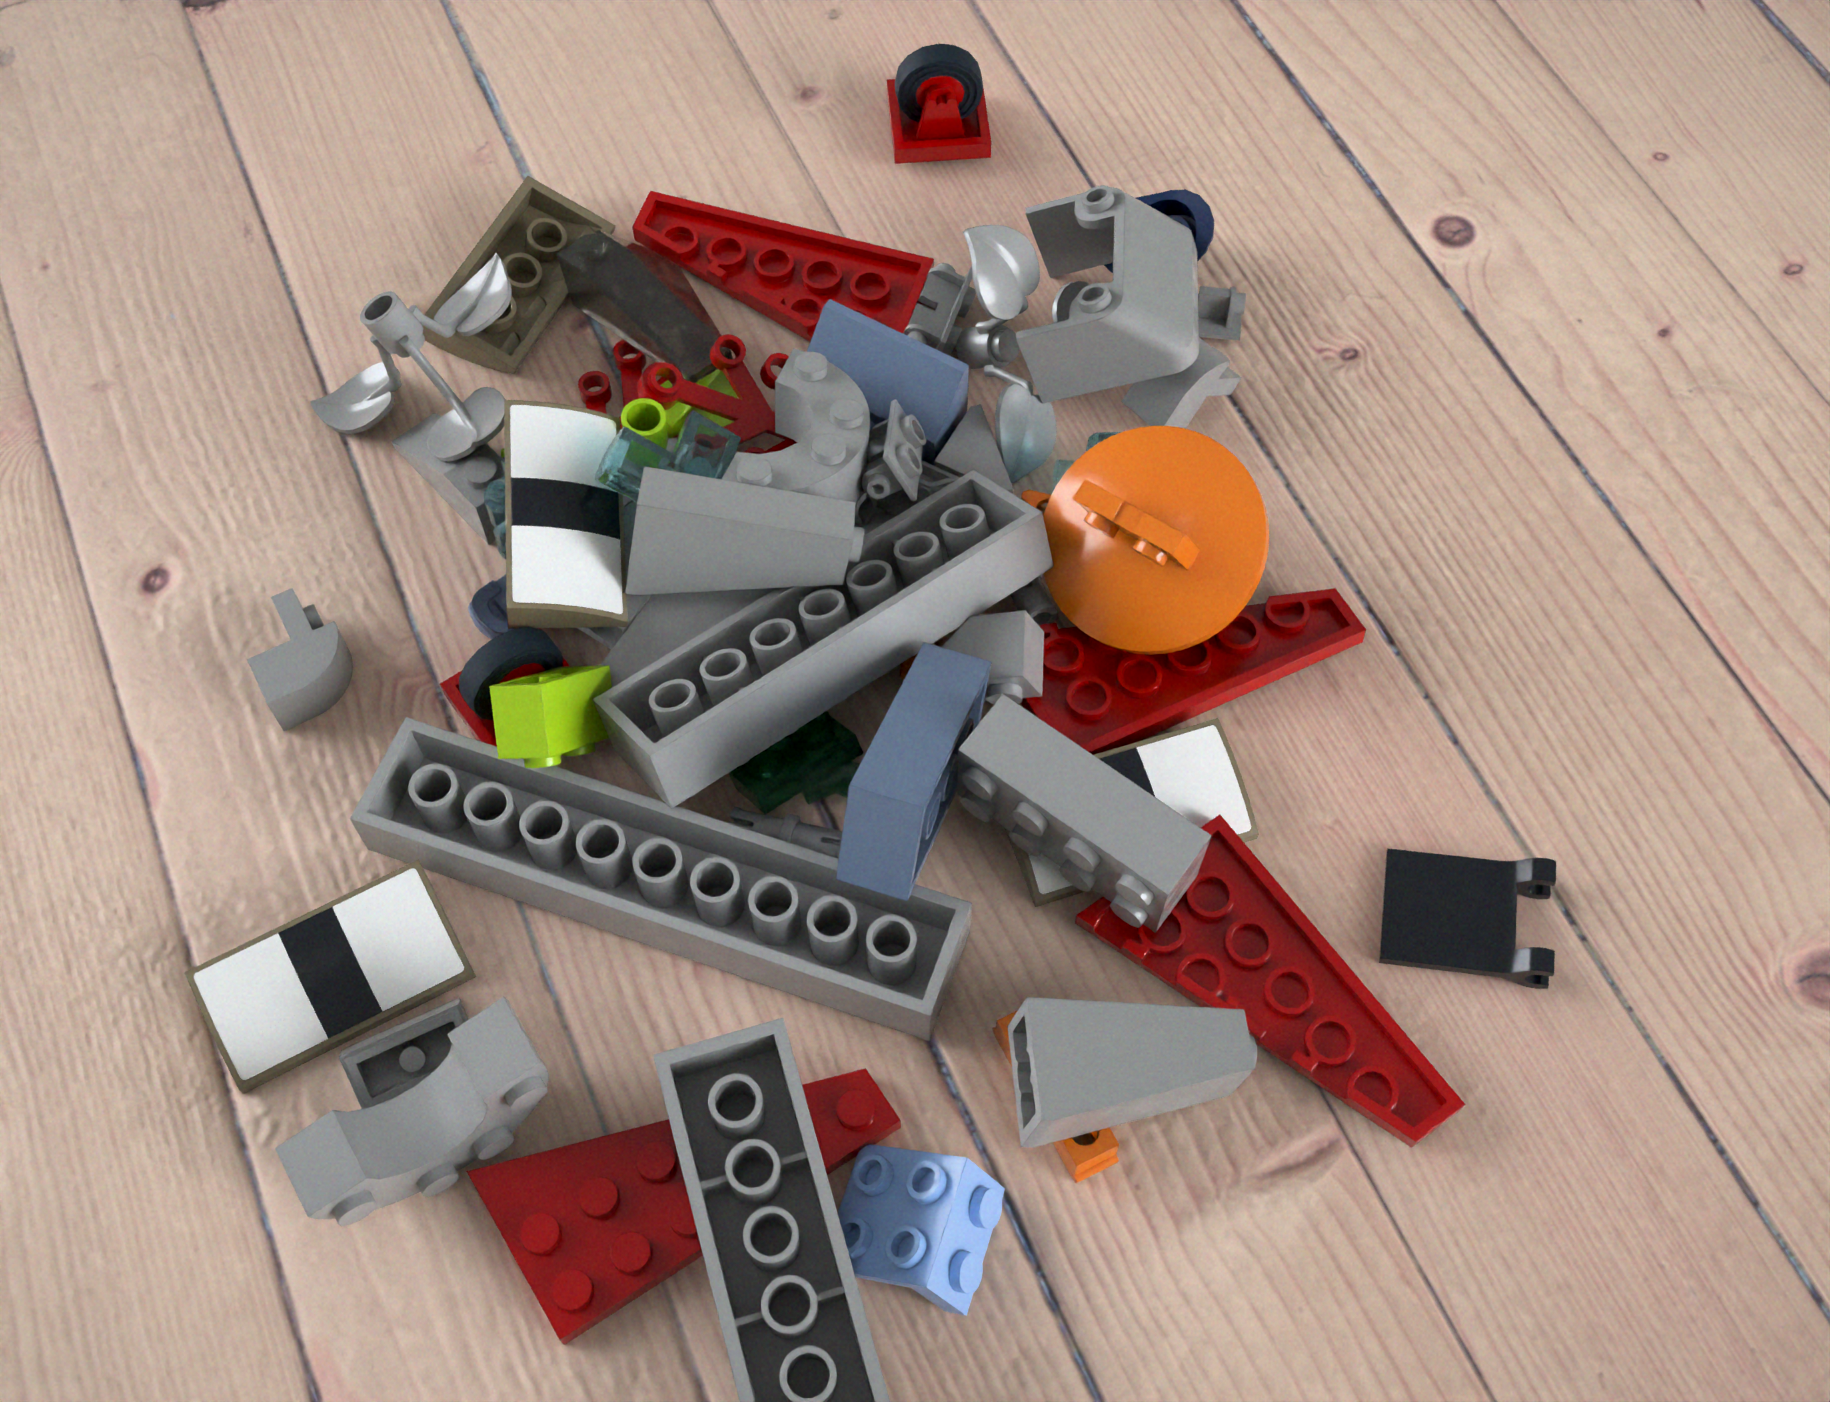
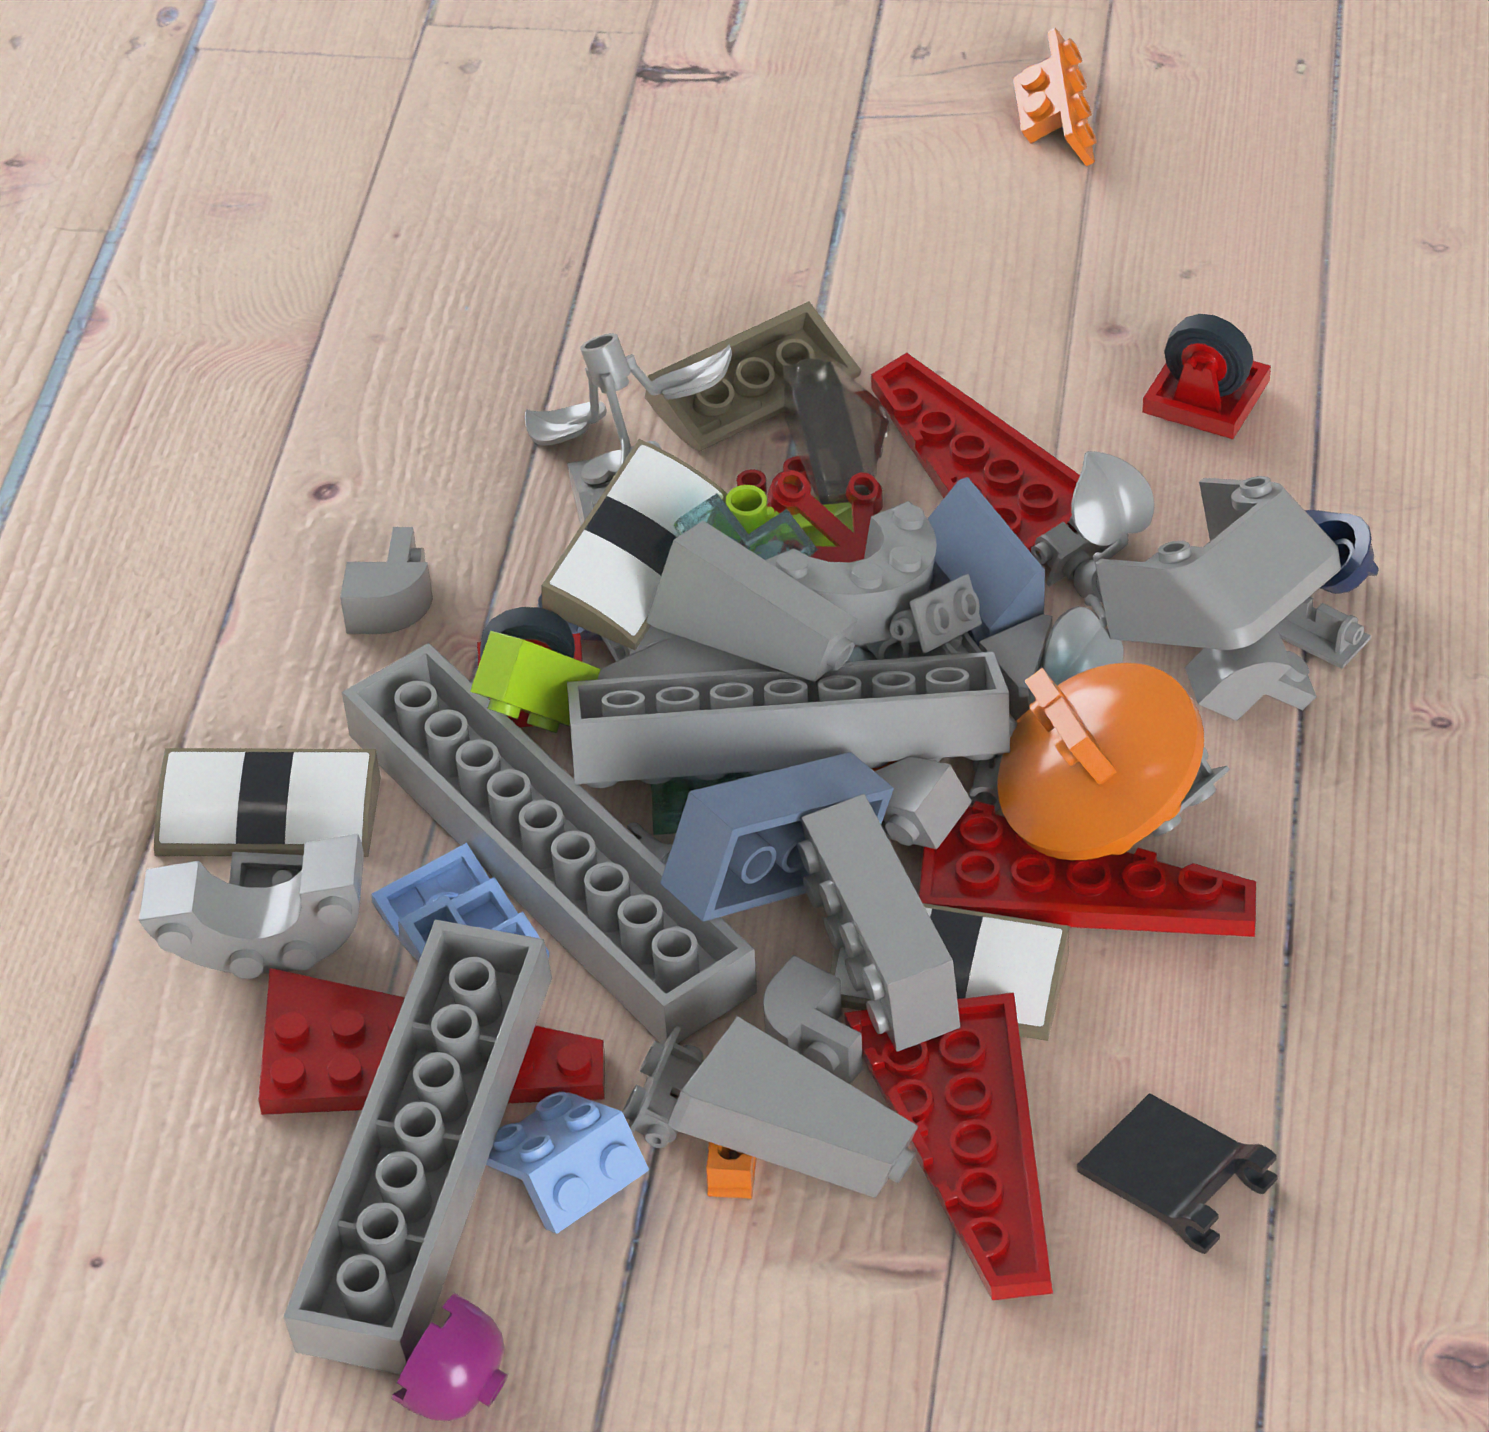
camera: 35 degrees right, 15 degrees down
(622, 1004) = (450, 891): none -> light blue slope
(950, 1067) = (668, 1071): none -> light grey hinge
(1038, 954) = (803, 1014): none -> light grey brick

